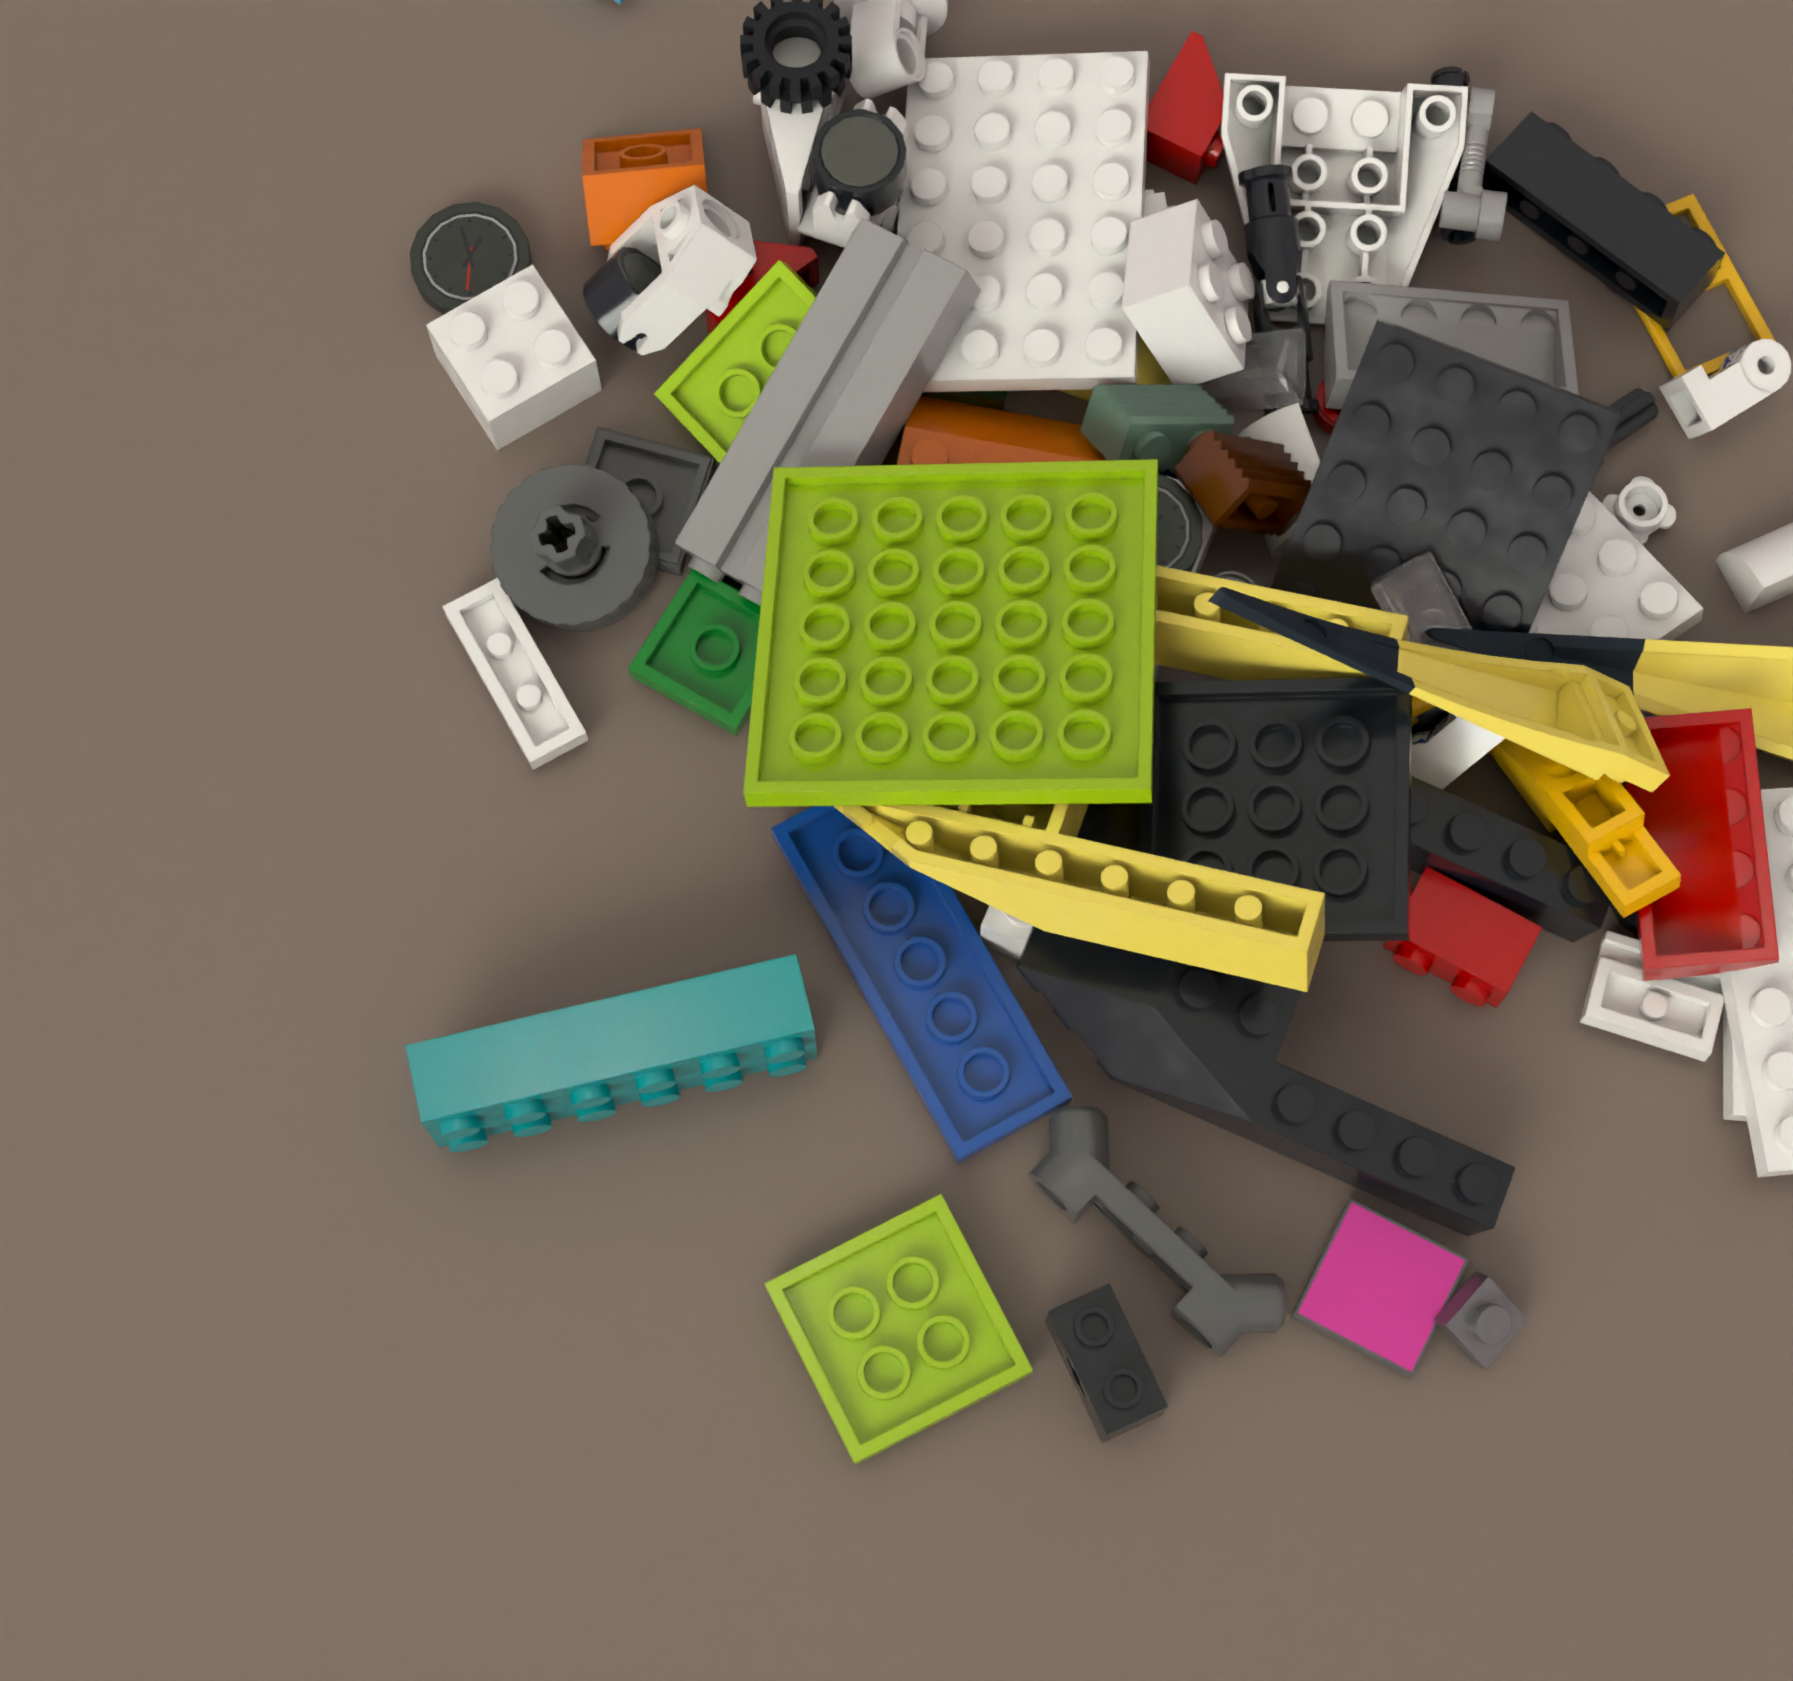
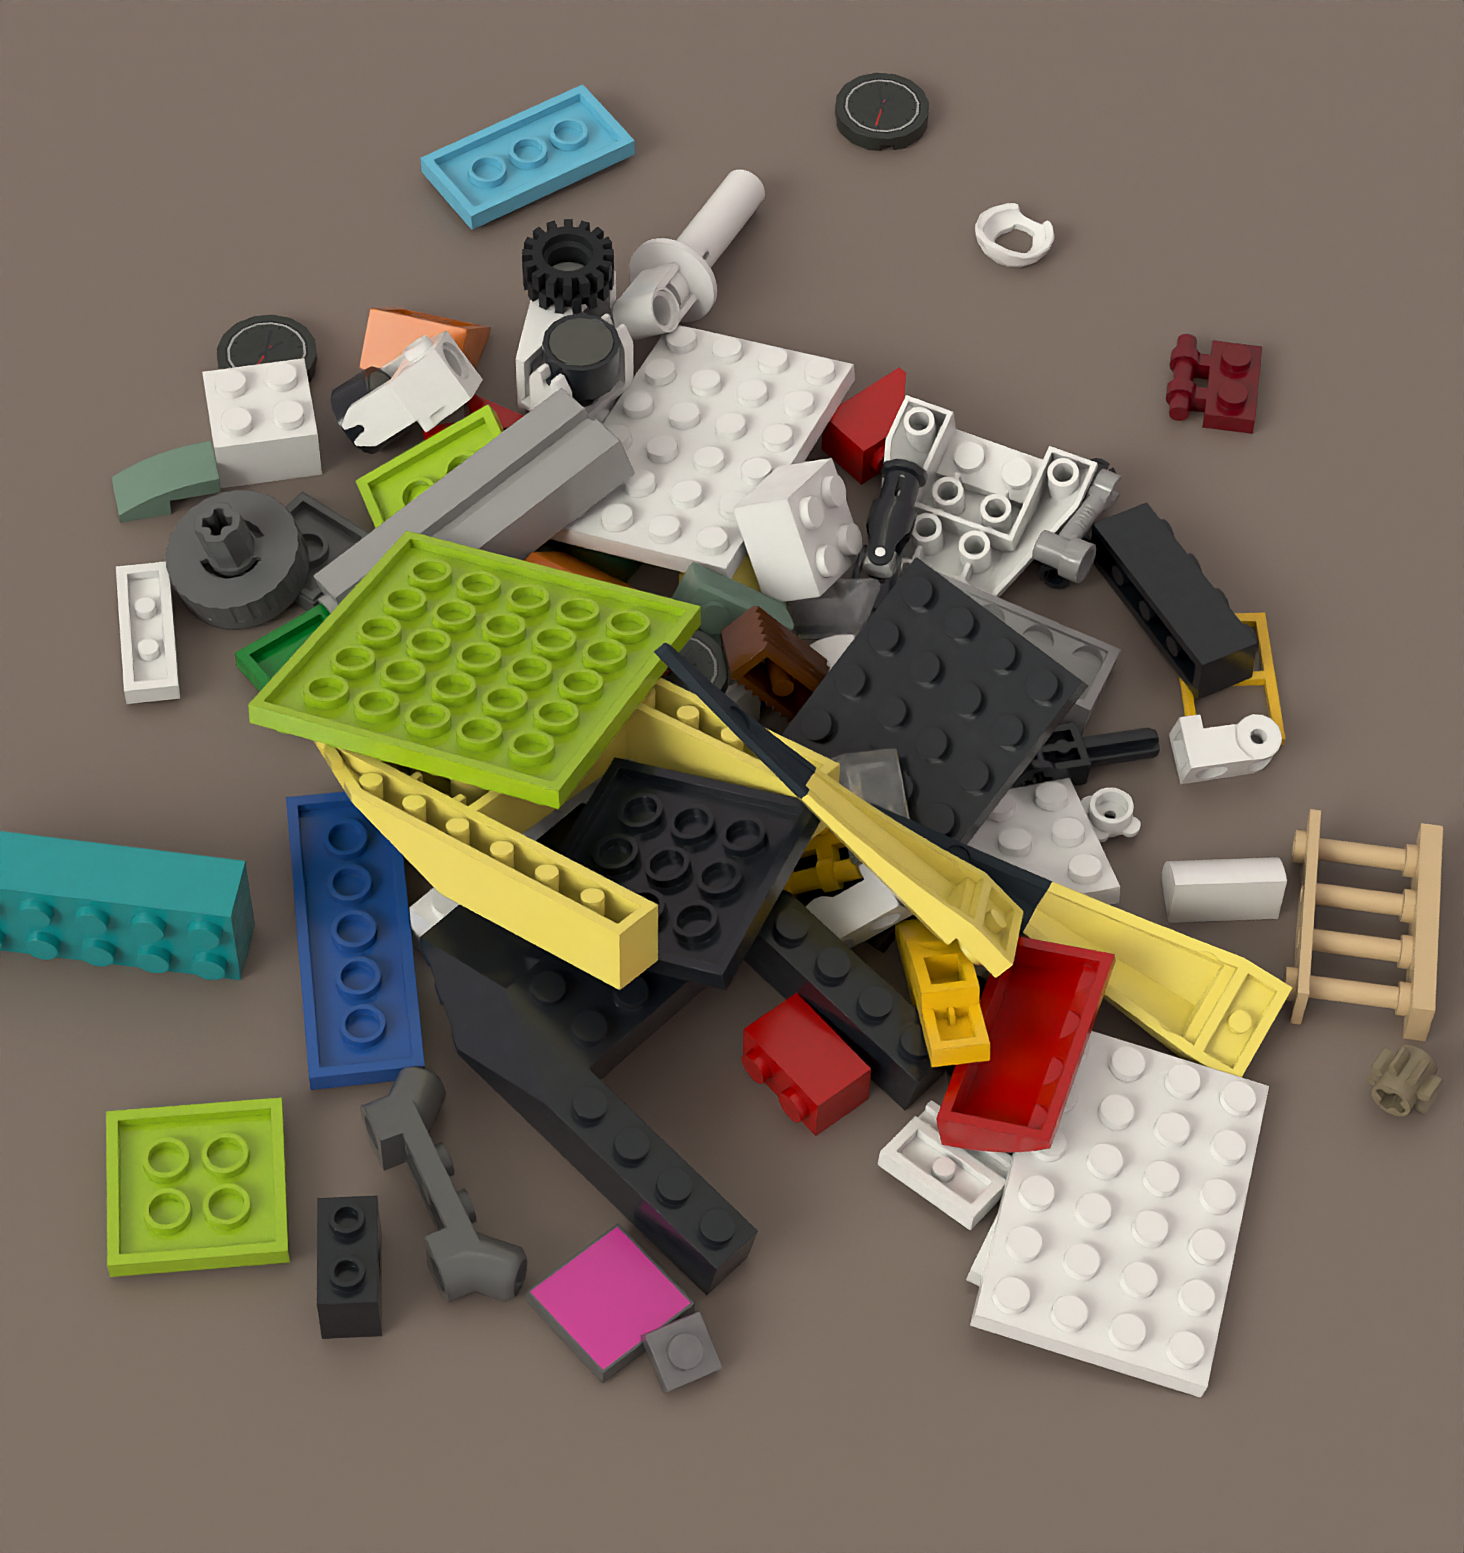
camera: 20 degrees right, 20 degrees down
(439, 468) = (176, 474): none -> sand green slope

